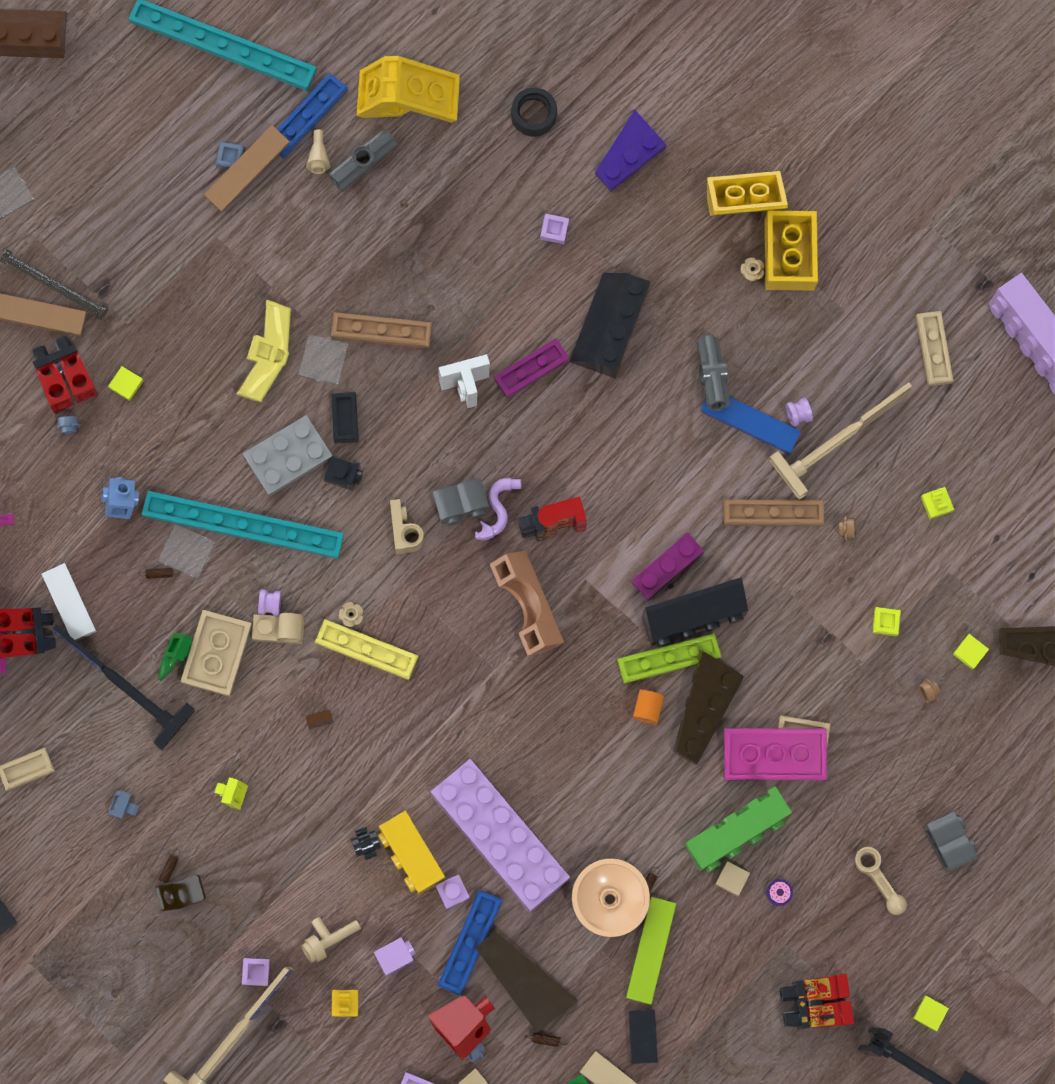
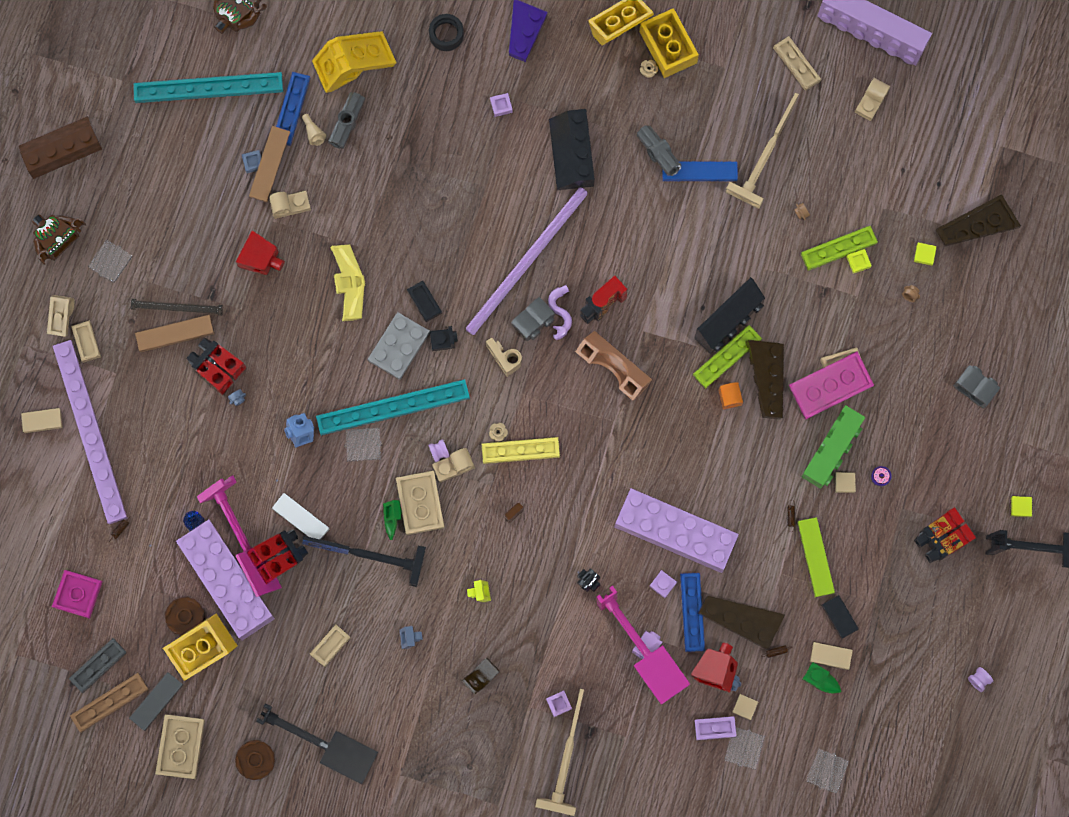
camera: 20 degrees left, 0 degrees up
(125, 383) = (261, 350): neon yellow tile -> none
(159, 573) = (353, 467): reddish brown piece -> none
(168, 868) = (463, 663): reddish brown piece -> none
(179, 270) = (259, 255): none -> red torso
(245, 227) = (287, 205): none -> tan plate
(315, 949) = (590, 667): tan piece -> none
(323, 359) = (389, 269): clear piece -> none
(344, 1003) = (629, 694): yellow tile -> none
(381, 330) = (418, 230): medium nougat tile -> none
(389, 988) = (657, 667): none -> dark pink piece
(410, 853) = (622, 572): yellow brick -> none
(464, 376) = (494, 233): white bracket -> none
(489, 428) = (526, 261): none -> lavender axle
(531, 368) = (534, 206): magenta plate -> none
(615, 879) = (773, 521): light nougat dish -> none
(667, 566) = (694, 295): magenta plate -> none
(773, 512) = (746, 225): medium nougat tile -> none
(799, 412) = (729, 149): lavender wheel -> none
(870, 594) = (839, 248): none -> lime tile
(895, 903) = (961, 445): tan piece -> none
(937, 503) = (852, 166): neon yellow tile -> none
(1003, 435) = (872, 99): none -> tan plate

